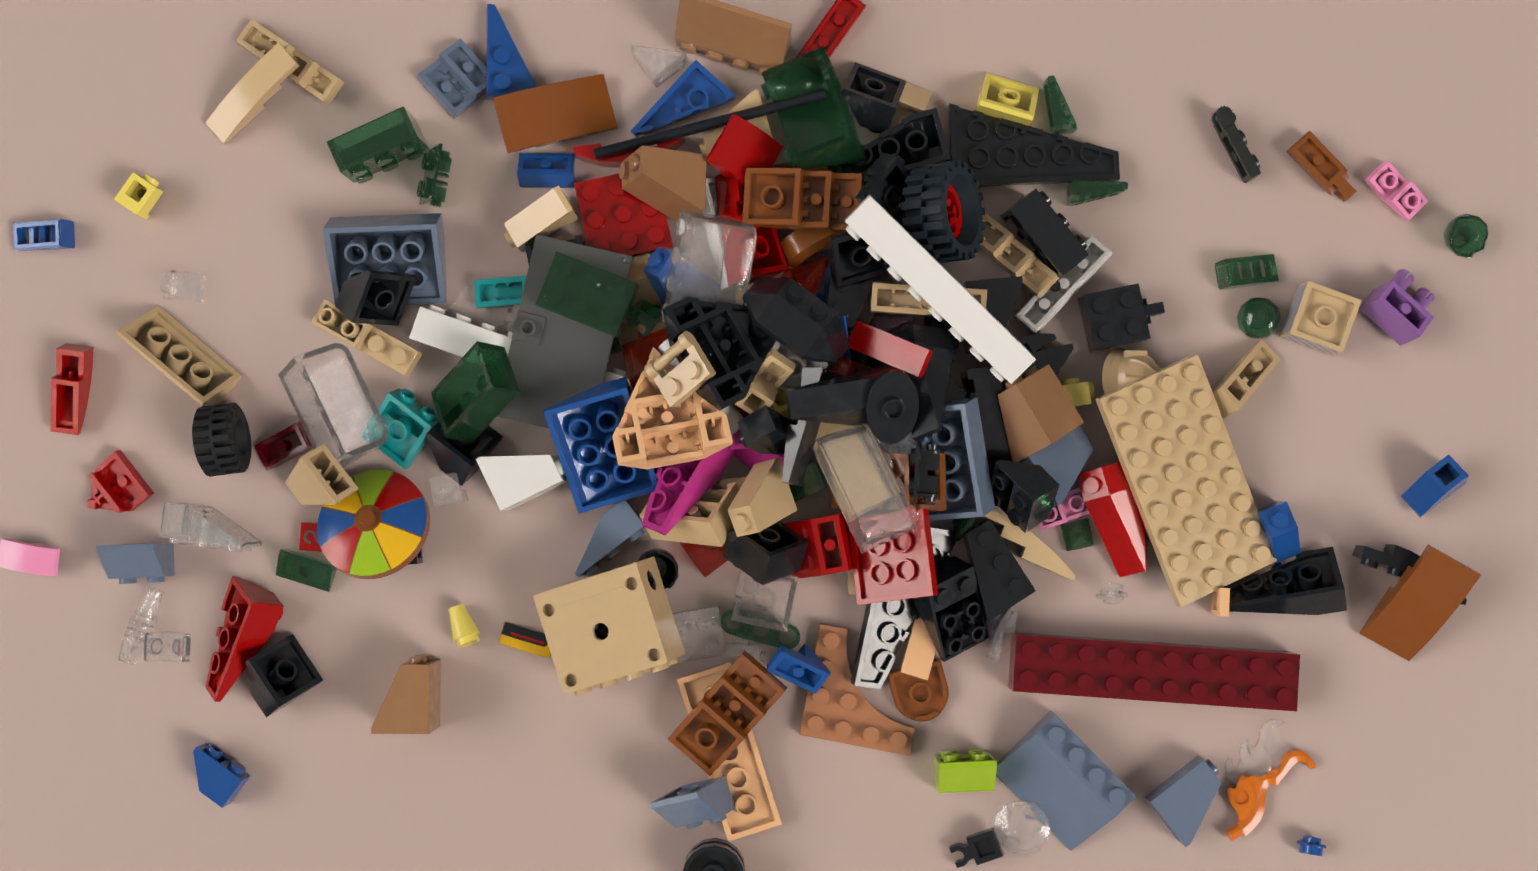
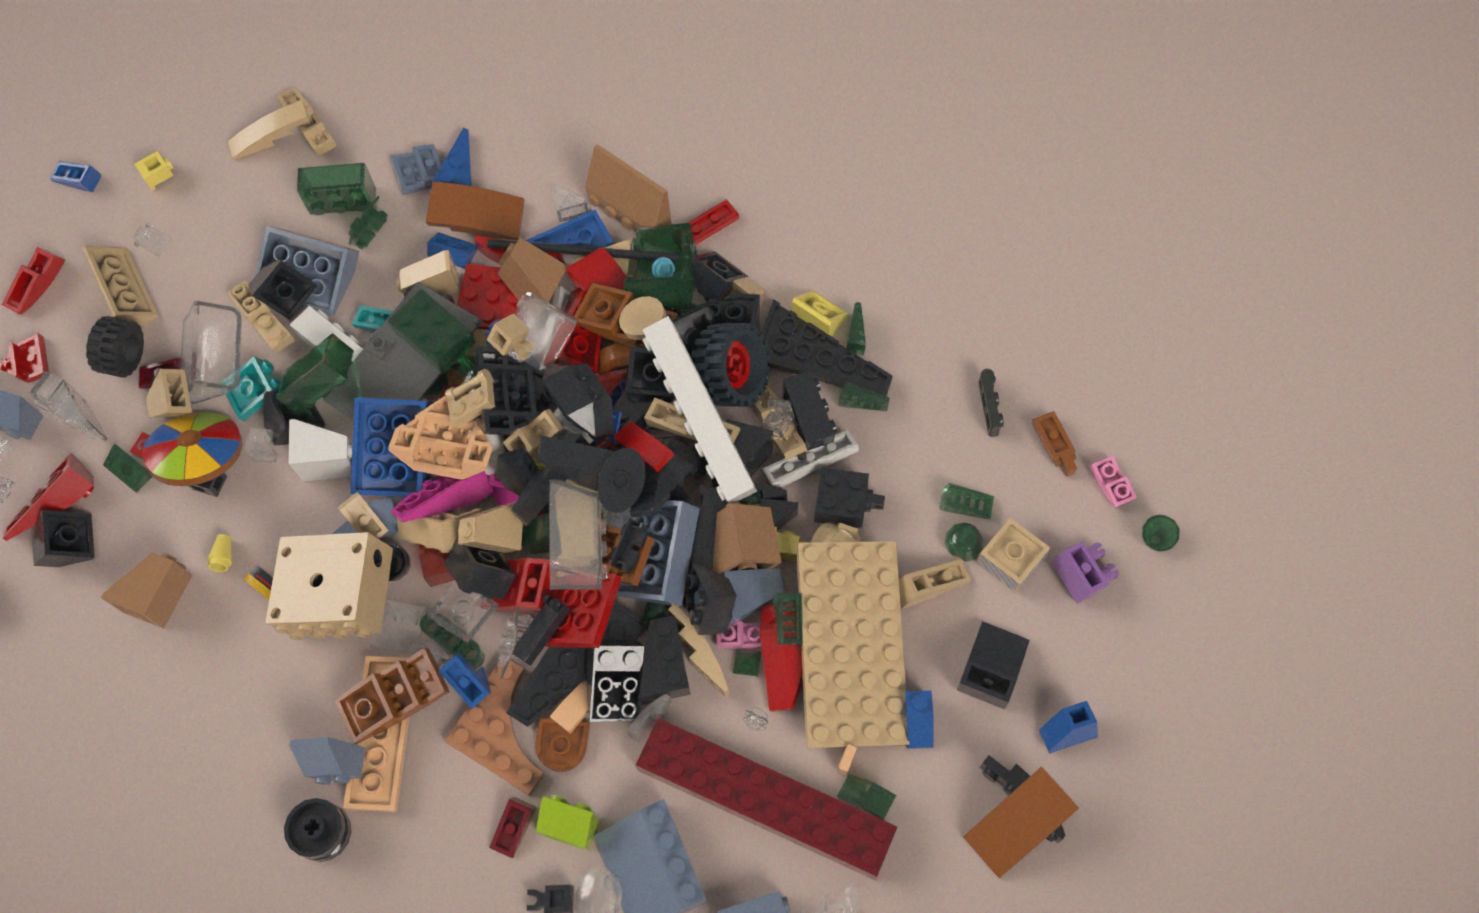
camera: 20 degrees right, 20 degrees down
(611, 540) = (362, 516): none -> tan slope
(694, 281) = (510, 335): none -> tan brick
(813, 115) = (663, 267): none -> medium azure plate
(828, 197) = (639, 315): none -> tan tile
(828, 611) = (515, 629): none -> clear hinge
(860, 592) = (541, 629): none -> black hinge
(906, 791) = (512, 826): none -> dark red slope
(1016, 255) = (779, 417): none -> clear bracket
(1107, 484) = (778, 599): none -> clear green slope
(1254, 631) = (866, 796): none -> clear green slope
(1301, 586) = (925, 775): black wedge -> none
(1337, 445) = (993, 665): none -> black slope

